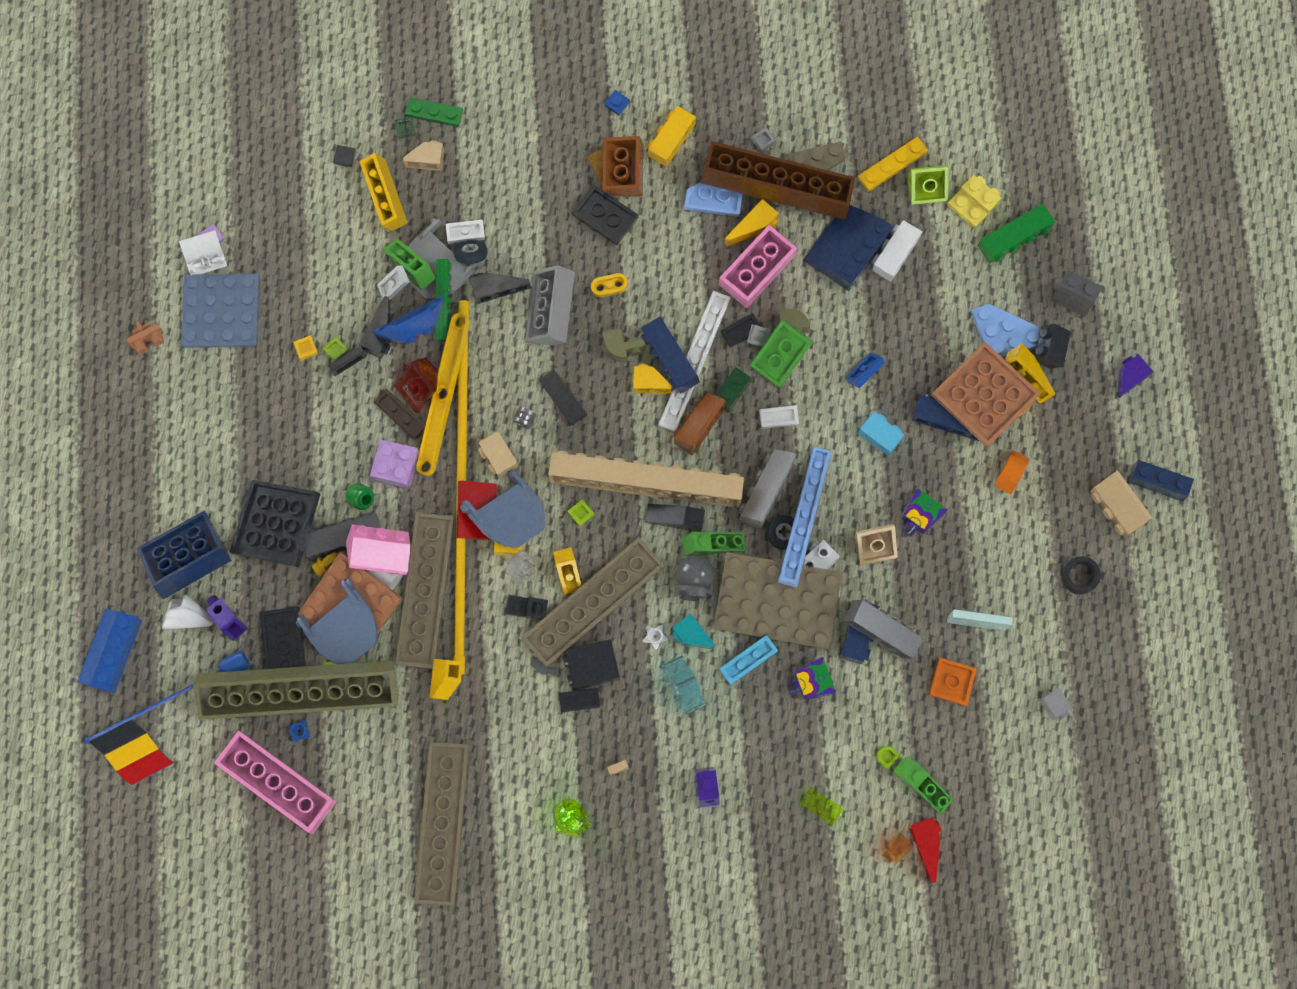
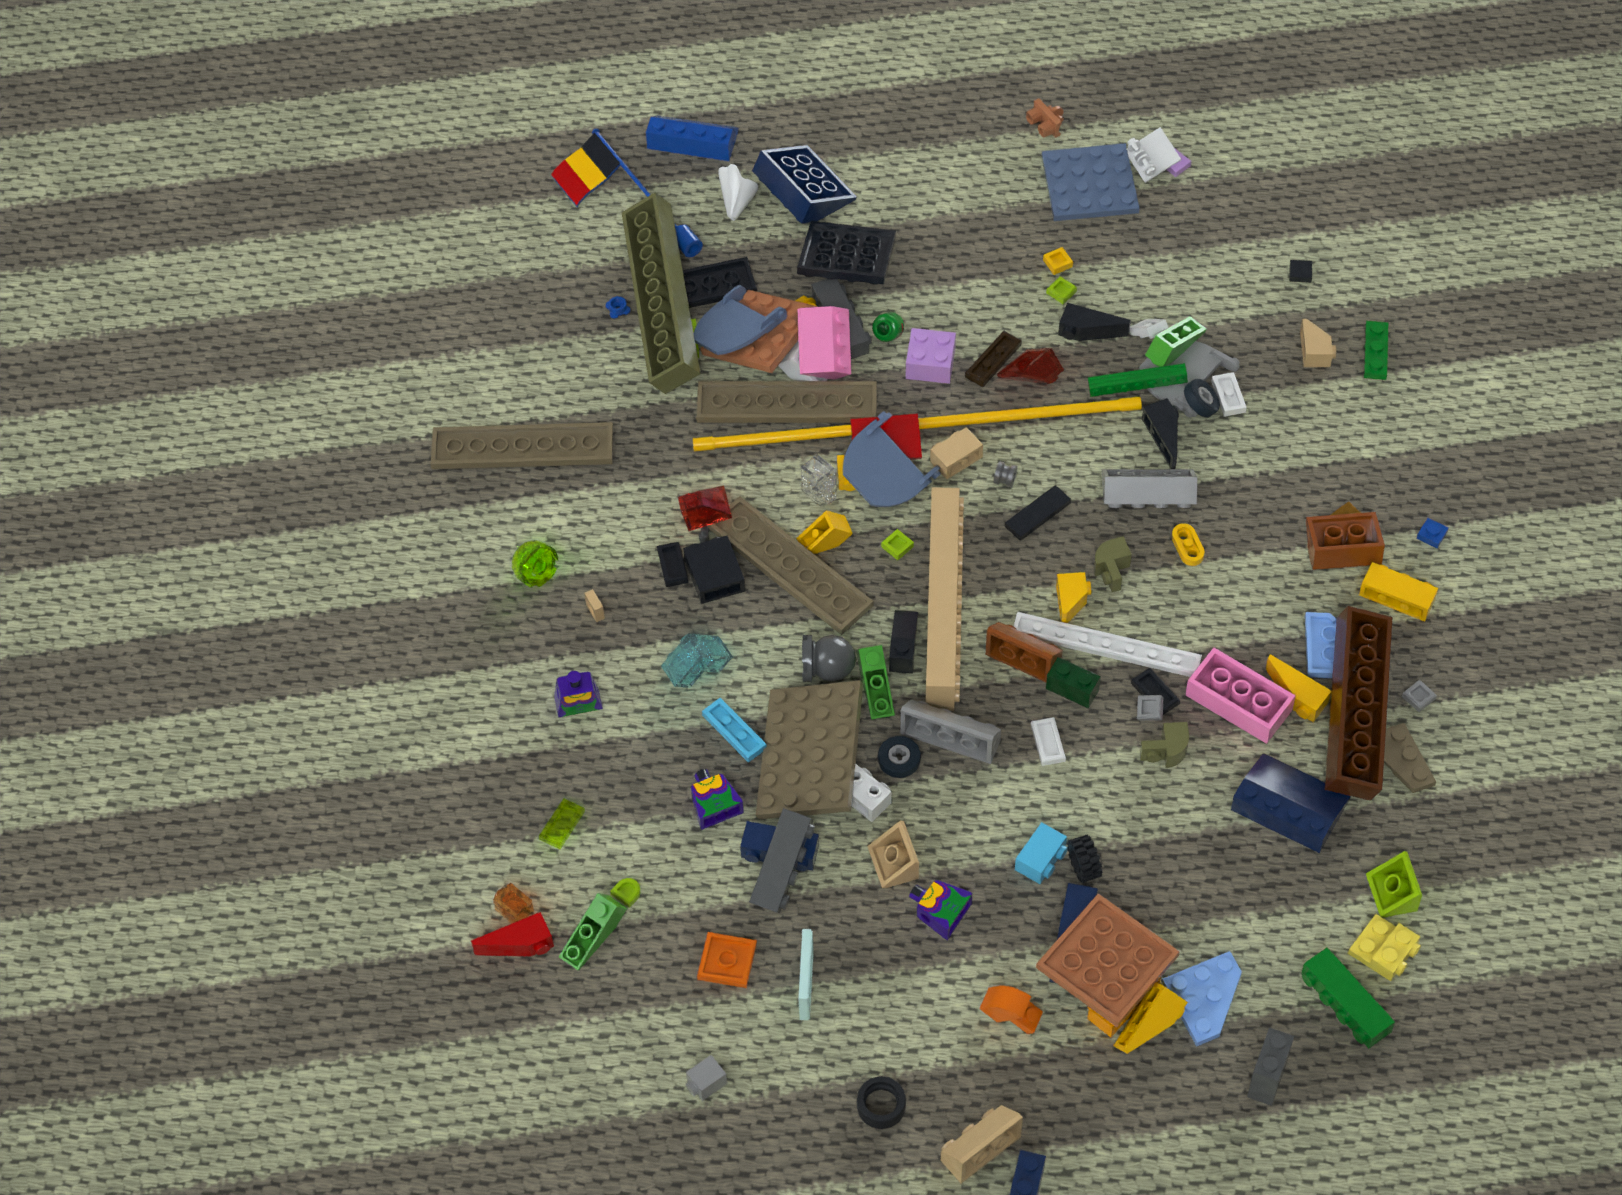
camera: 85 degrees right, 20 degrees down
(225, 617) = (735, 224): dark purple torso -> none
(275, 782) = (558, 289): bright pink brick -> none
(347, 361) = (1047, 298): black tile -> none
(383, 192) = (1260, 306): yellow brick -> none
(405, 127) = (1349, 324): clear green tile -> none
(412, 324) = (1099, 347): blue wedge -> none
(439, 407) = (1036, 391): yellow beam -> none
(445, 678) = (685, 426): yellow slope -> none
(526, 607) = (777, 500): black slope -> none
(529, 667) = (705, 507): none -> clear red slope
(605, 215) = (1278, 532): black plate -> none
(655, 631) = (753, 628): white plate -> none
(670, 354) = (1106, 611): dark blue brick -> none
(691, 634) = (761, 666): teal slope -> none
(781, 353) = (1128, 729): bright green tile -> none
(804, 517) = (918, 766): light blue tile -> none
(864, 370) = (1119, 826): blue plate -> none
(893, 164) = (1418, 846): yellow plate -> none
(893, 401) = (1084, 858): none -> black tyre
(896, 250) = (1294, 855): white brick -> none
(1052, 346) = (1192, 1046): black brick -> none
(1132, 373) = (1169, 1153): dark purple slope -> none

